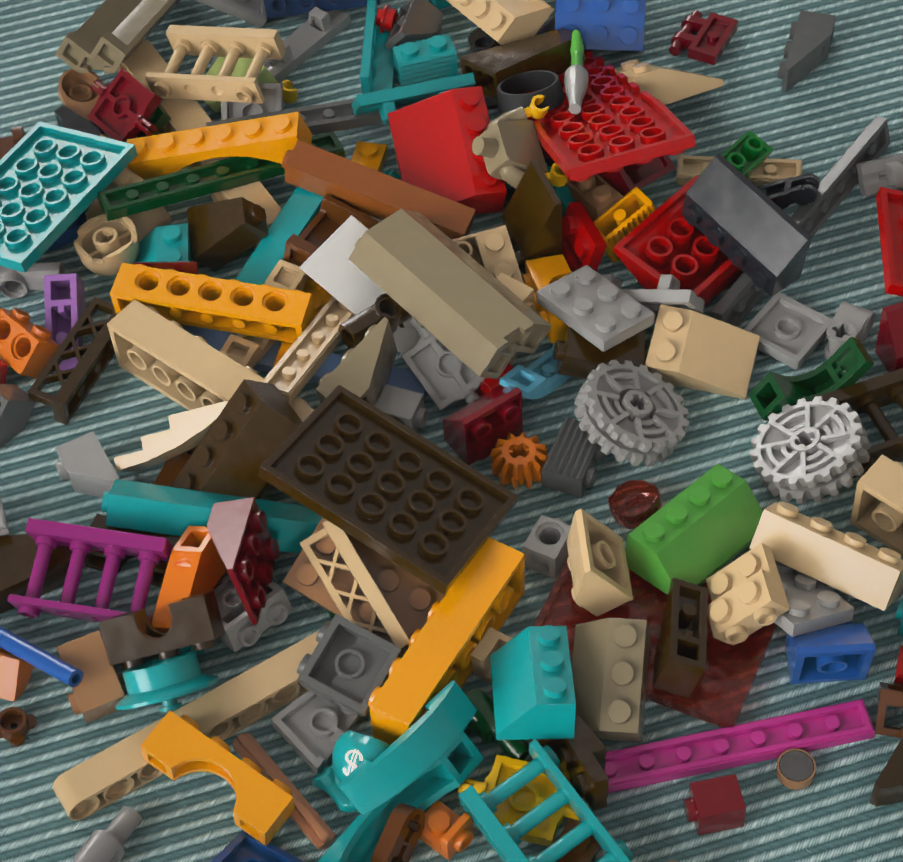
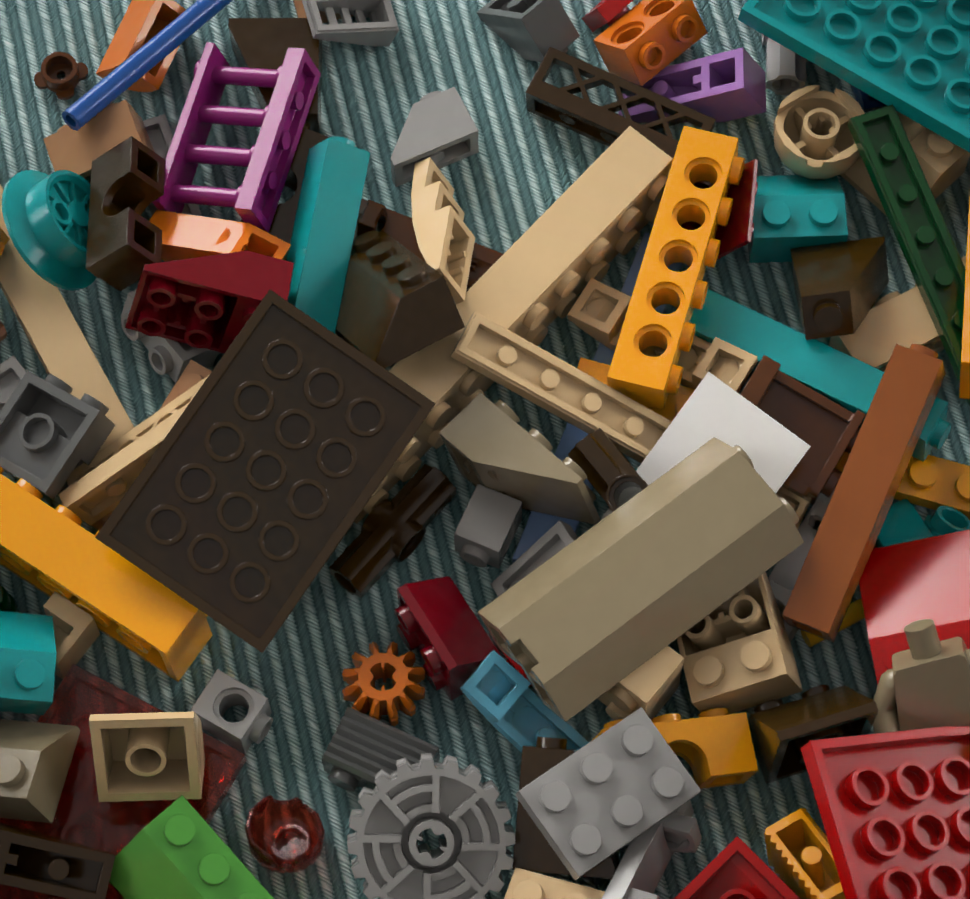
camera: 90 degrees right, 15 degrees up
(583, 236) = (769, 801): red plate -> none

